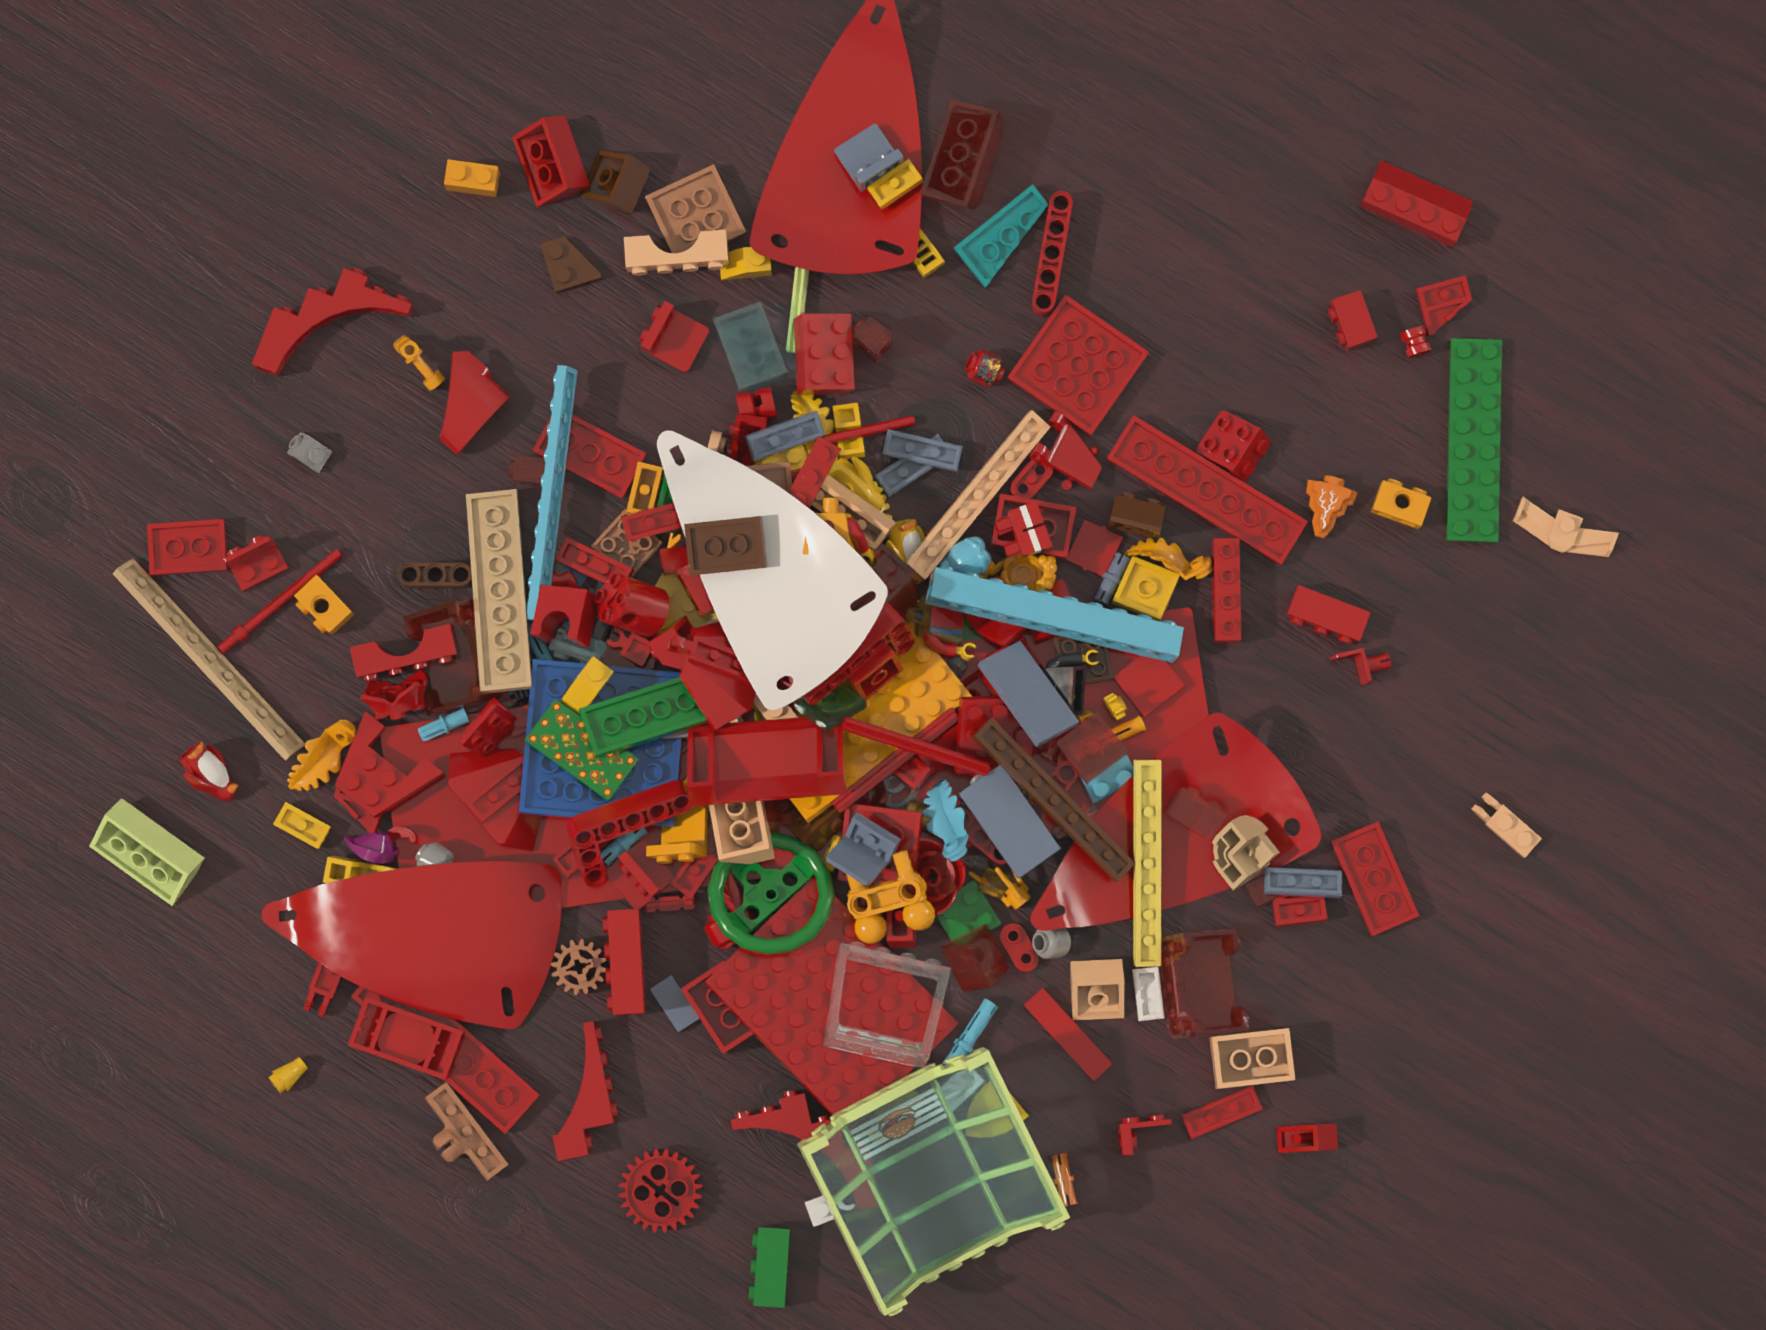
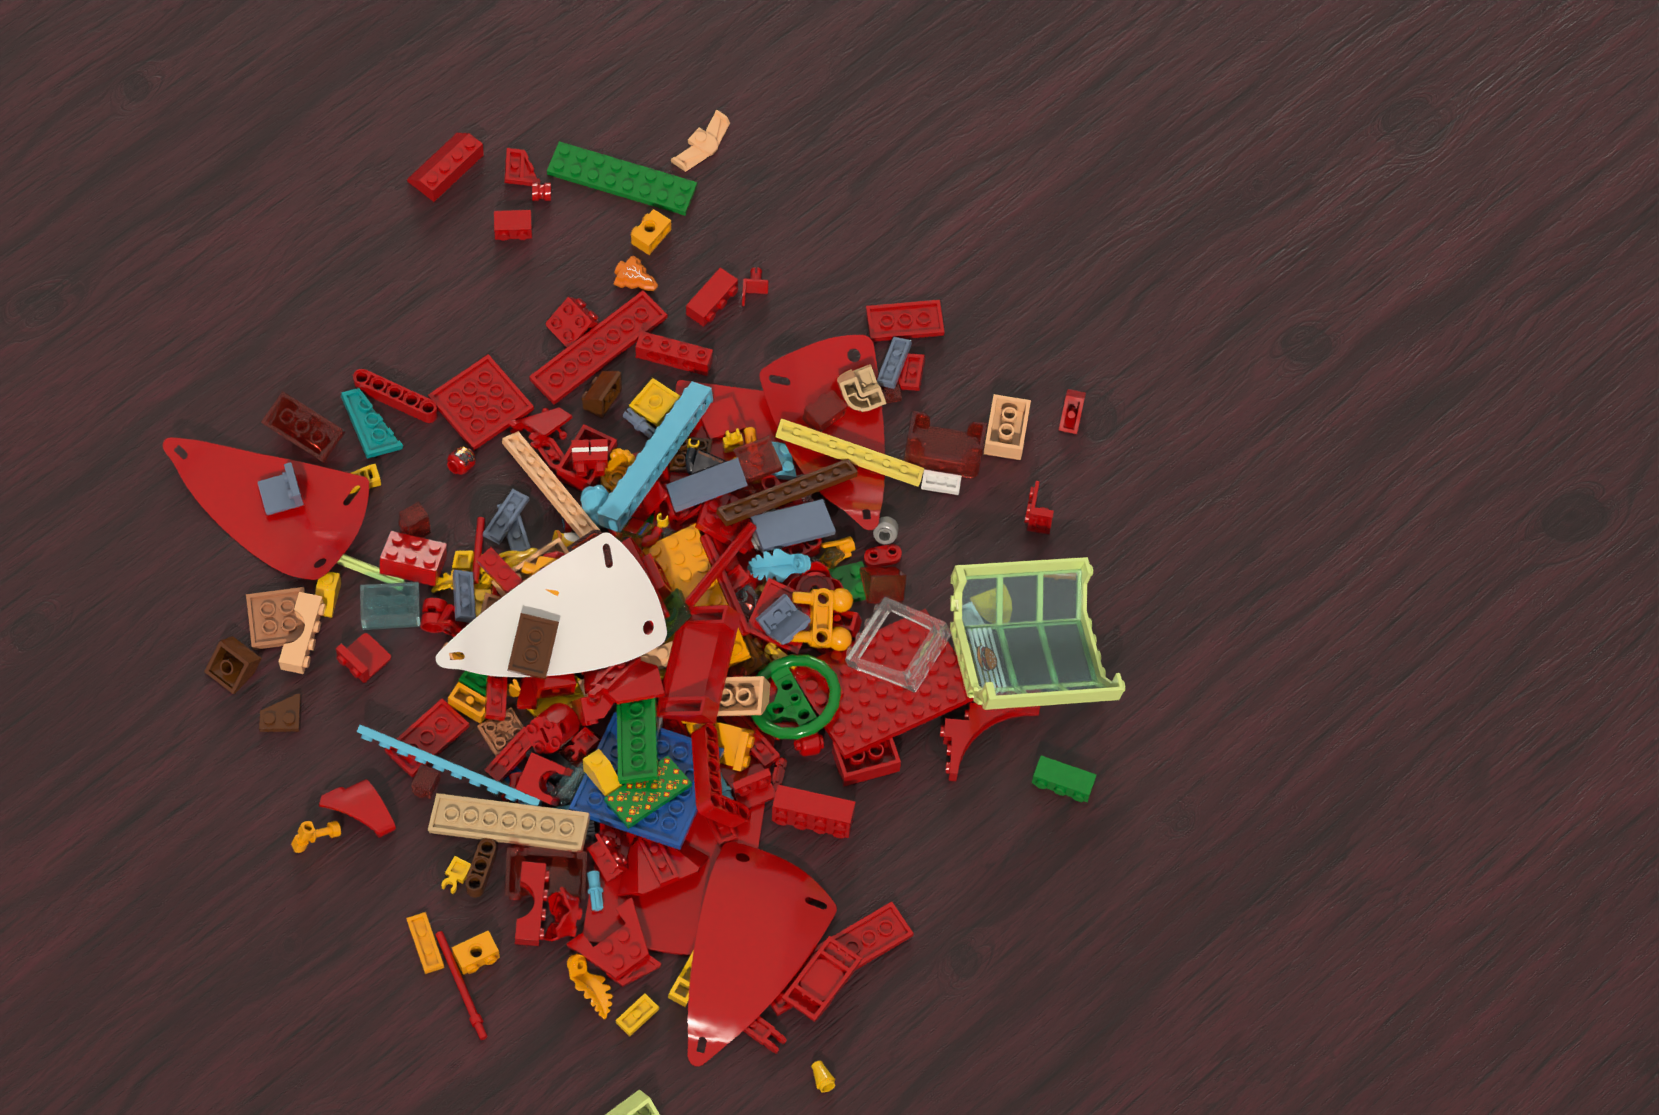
camera: 75 degrees left, 20 degrees down
(187, 547) = (396, 1039): red plate -> none
(207, 771) = (574, 1069): animal -> none
(209, 659) = (488, 1046): tan plate -> none
(256, 562) = (426, 992): red bracket -> none
(309, 451) = (354, 932): light grey bracket -> none
(322, 539) = (425, 942): none -> light orange tile
(350, 297) = (249, 869): red arch -> none
(379, 846) = (670, 960): magenta piece -> none
(423, 549) = (456, 872): none -> yellow plate
(433, 854) = (690, 922): light grey head -> none
(463, 1133) = (904, 963): nougat plate -> none
(472, 178) = (192, 760): light orange brick -> none
(550, 160) = (200, 704): red slope -> none
(582, 978) = (797, 848): nougat gear -> none
(593, 1103) = (907, 866): red arch -> none
(645, 1209) = (975, 825): red gear -> none
(674, 1003) = (855, 791): sand blue tile -> none
(818, 1211) = (1031, 734): white plate -> none
(895, 184) = (307, 479): yellow plate -> none
(973, 1030) = (942, 609): medium azure pin -> none
(1068, 1034) = (954, 542): red tile -> none
(1094, 548) = (616, 427): red piece -> none
(1097, 989) = (928, 512): light nougat slope -> none
(1172, 558) = (652, 365): light orange plant -> none
(1221, 1112) = (1038, 460): red tile -> none
(1508, 826) = (894, 232): light nougat hinge -> none

